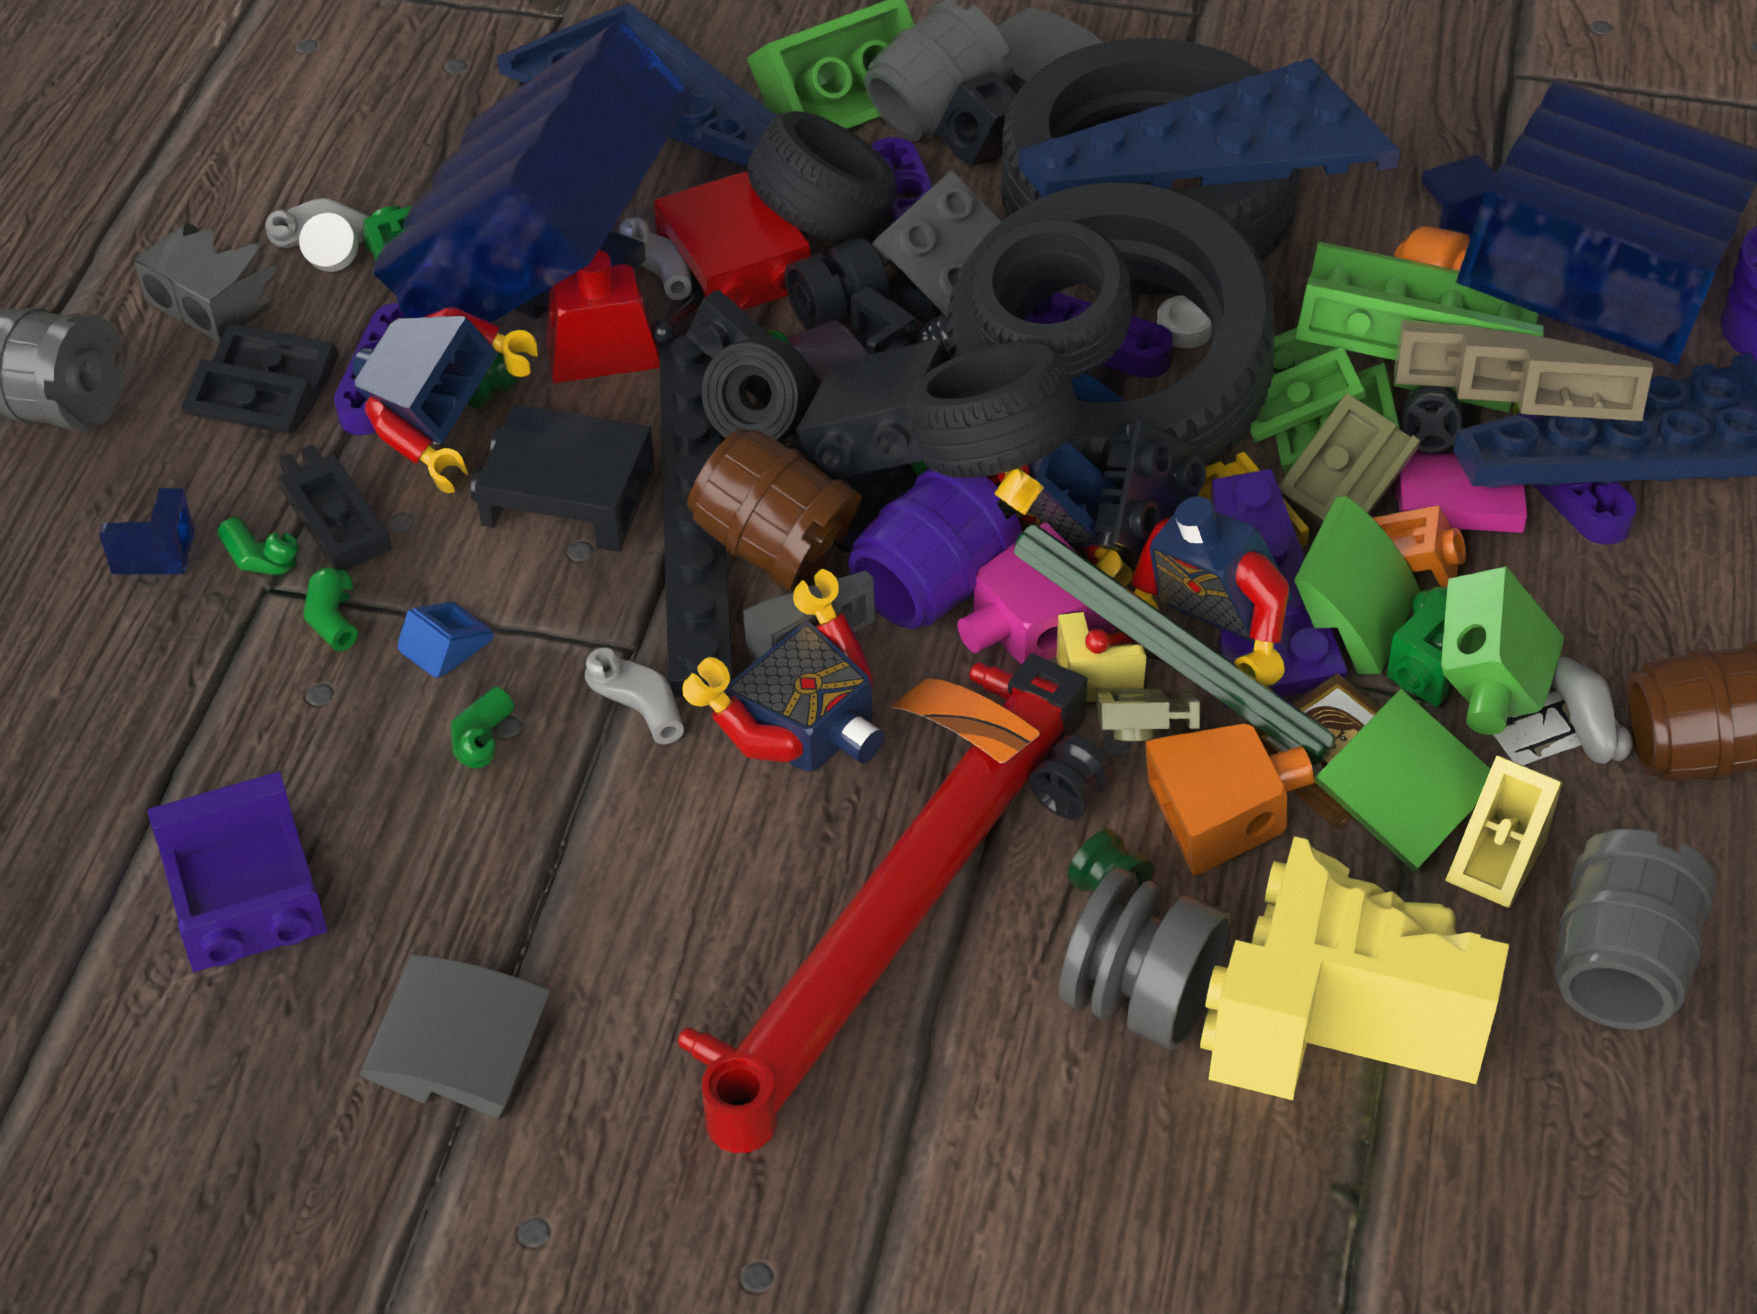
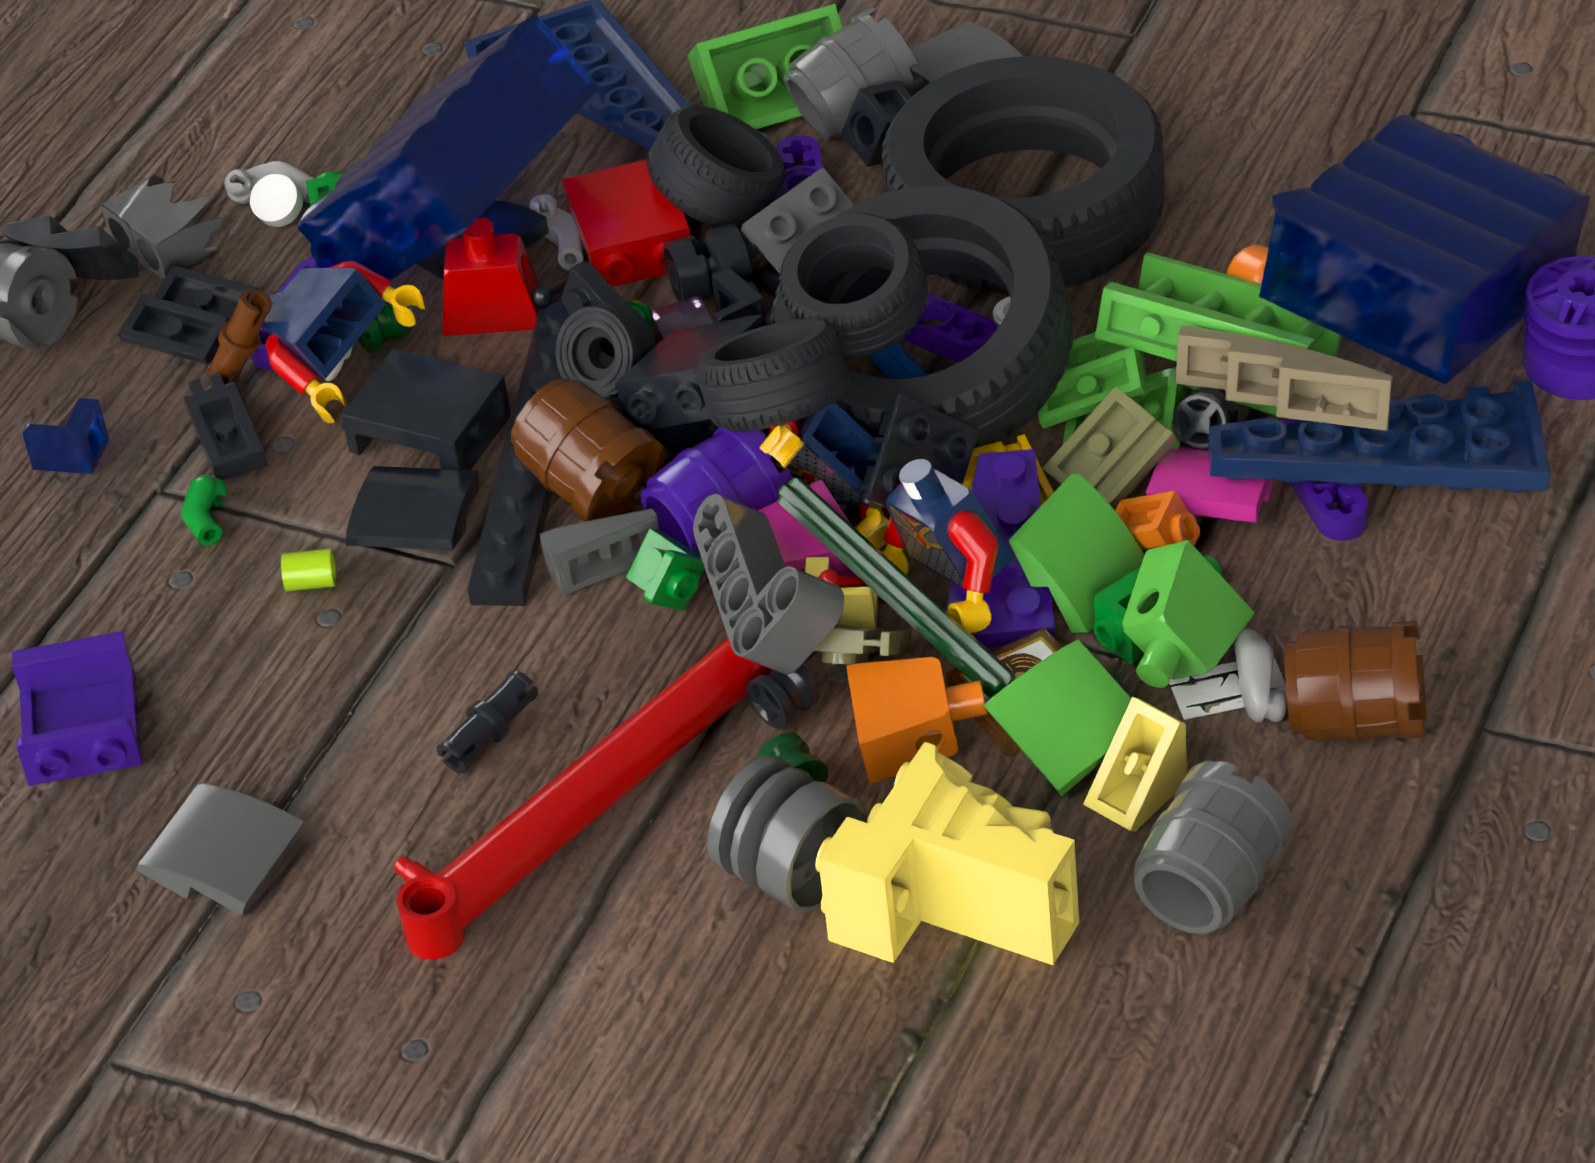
camera: 15 degrees right, 5 degrees down
(135, 314) = (89, 250): none -> black slope
(272, 557) = (148, 461): green arm -> none
(334, 401) = (240, 335): none -> reddish brown pin
(442, 637) = (289, 533): blue slope -> none
(472, 728) = (296, 616): green arm -> none
(474, 672) = (308, 570): none -> lime hinge
(576, 588) = (412, 508): none -> black slope
(638, 689) = (439, 592): light grey arm -> none
(736, 843) = (487, 721): none -> black pin
(801, 695) = (571, 610): torso -> none
(897, 640) = (666, 571): none -> green bracket
(970, 716) = (703, 634): orange sticker -> none
(1054, 696) = (767, 608): none -> dark grey beam
(1222, 135) = (1074, 150): dark blue wing -> none

